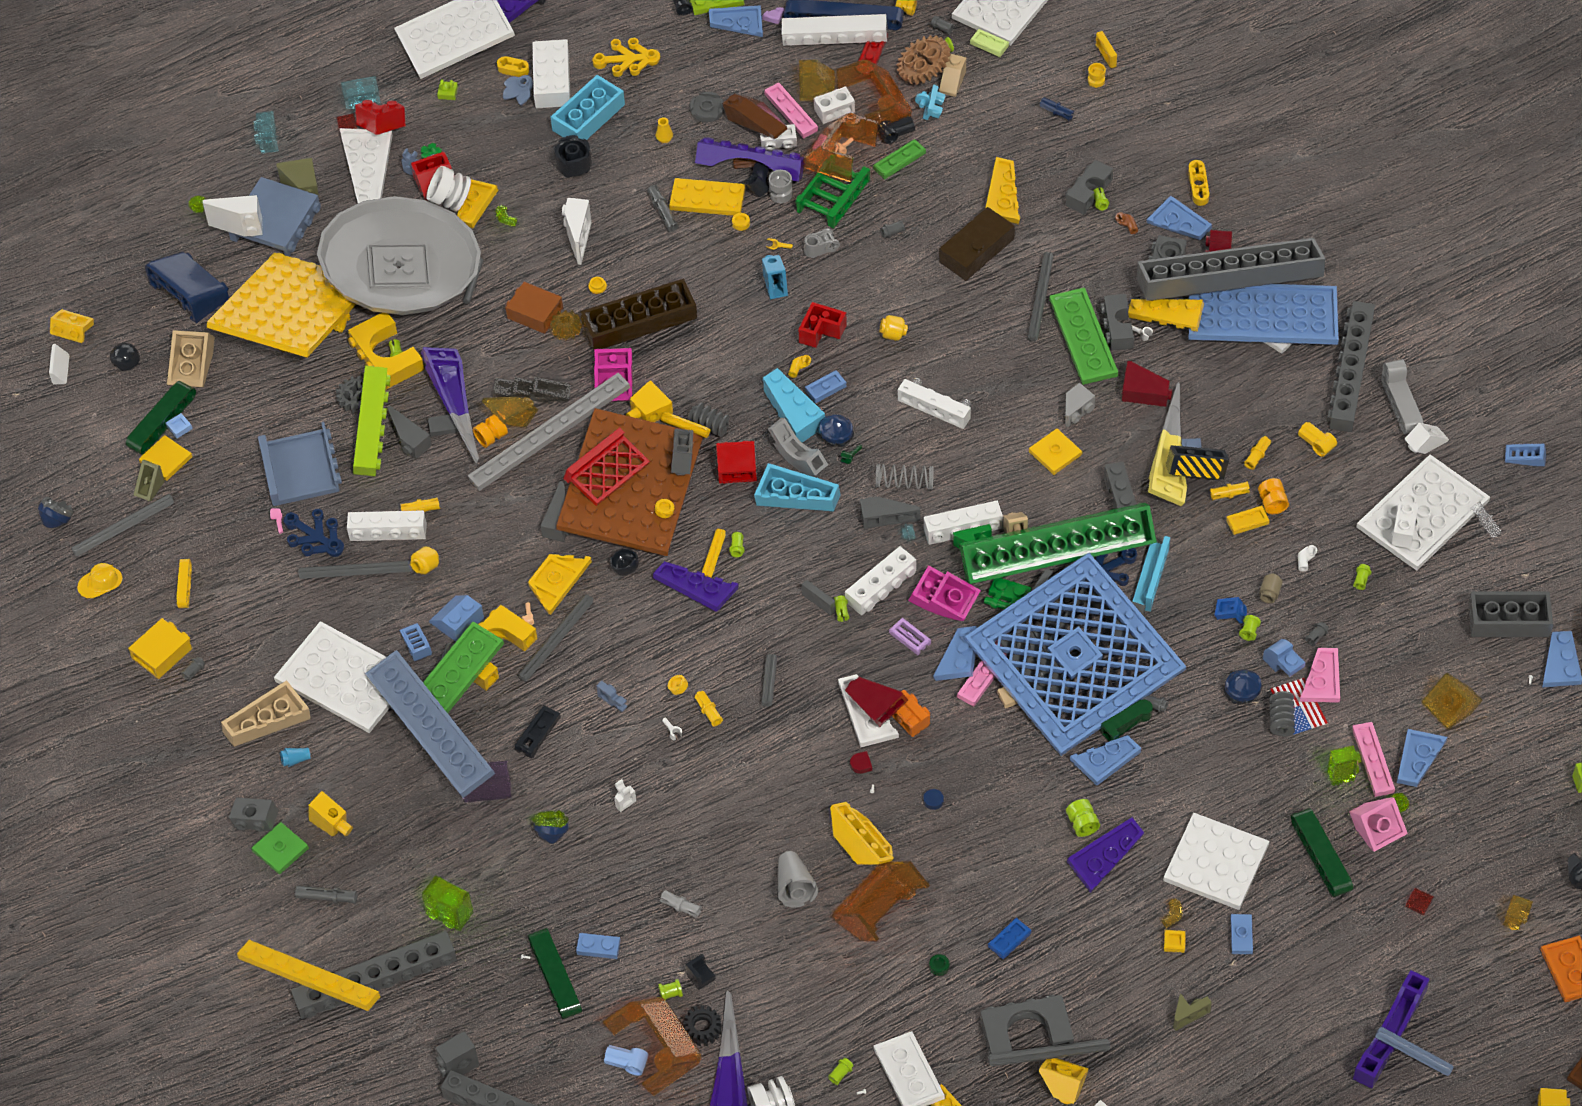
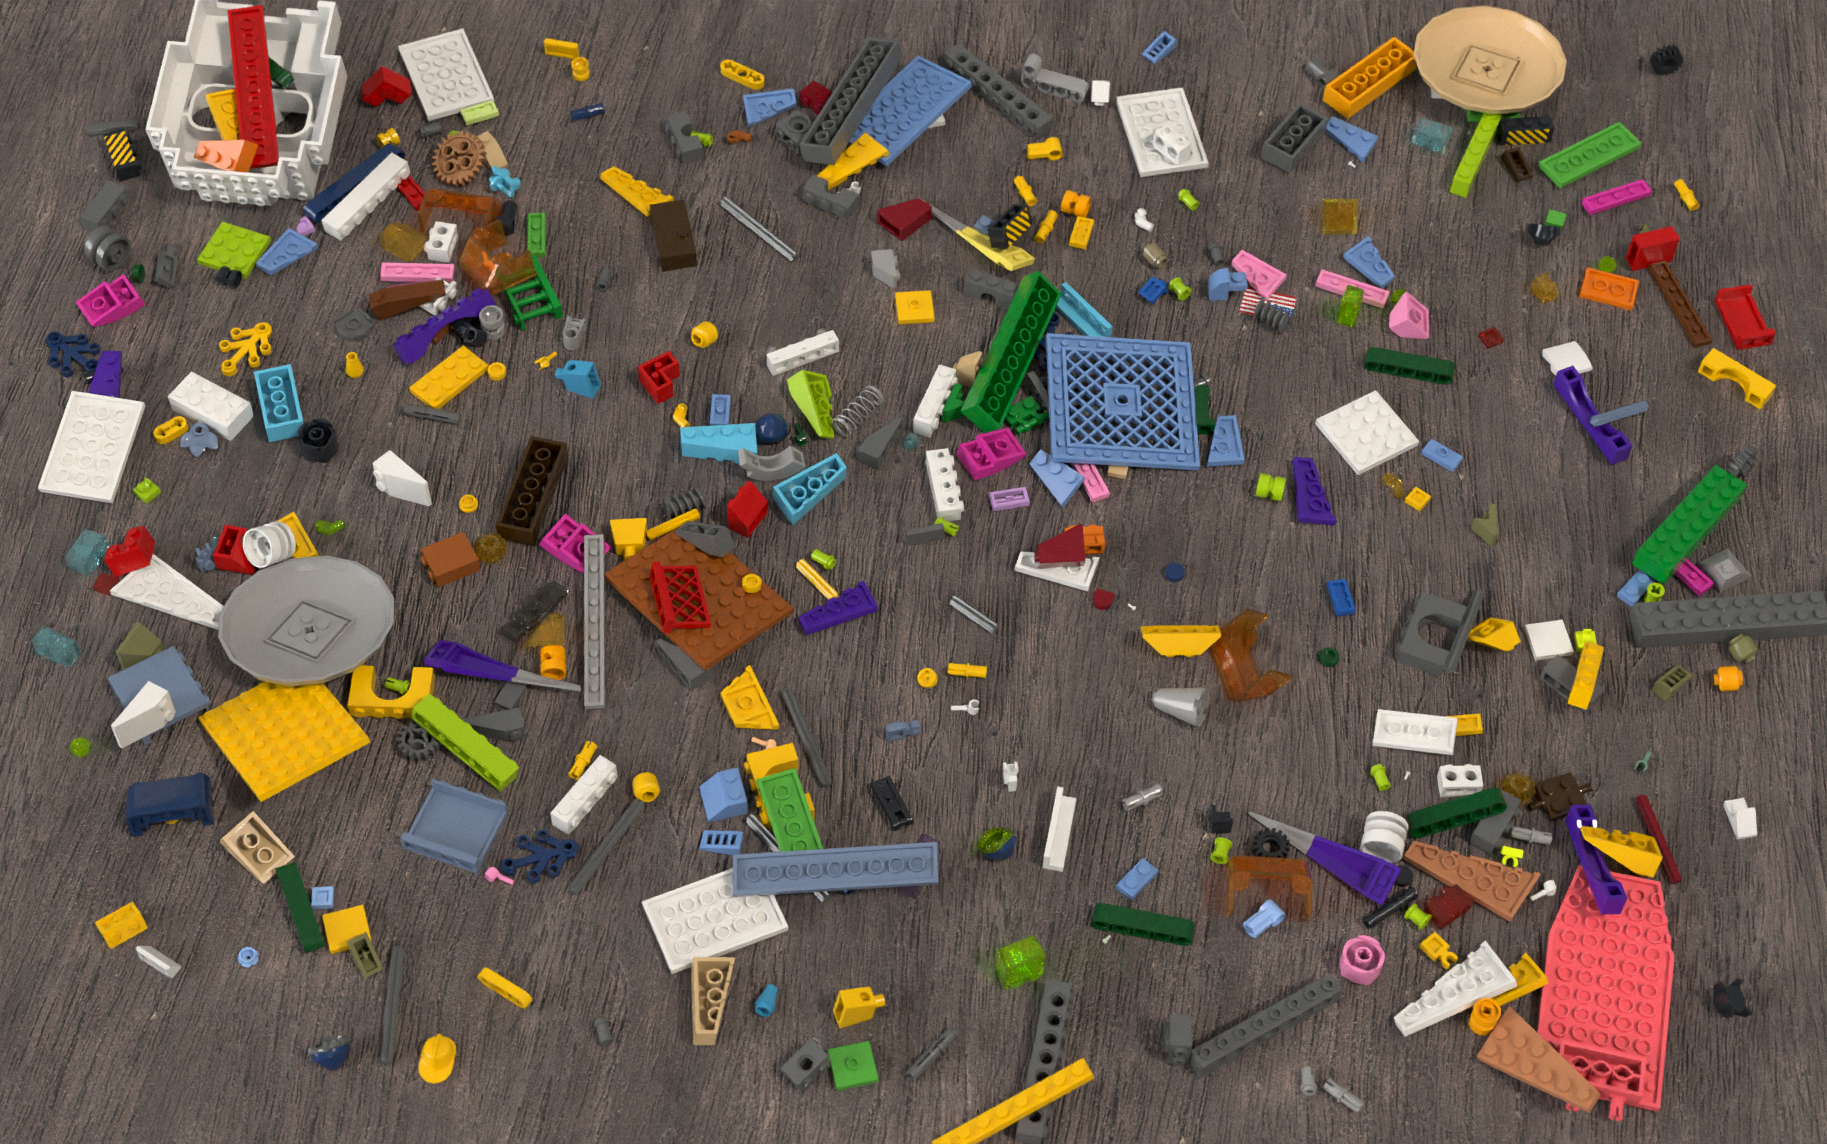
camera: 60 degrees left, 0 degrees up
(101, 412) = (248, 952): none -> light blue plate
(124, 356) = (199, 900): black hair -> none
(160, 648) = (560, 1045): yellow brick -> none
(431, 149) = (200, 540): green plant -> none
(600, 862) = (1059, 831): none -> white fence
(624, 562) = (775, 644): black hair -> none
(890, 441) = (812, 396): none -> lime wedge
(1083, 336) = (822, 225): bright green plate -> none
(1242, 686) = (1229, 323): dark blue hair -> none
(1448, 976) = (1566, 356): none -> white slope
(1486, 520) = (1200, 101): clear axle -> none

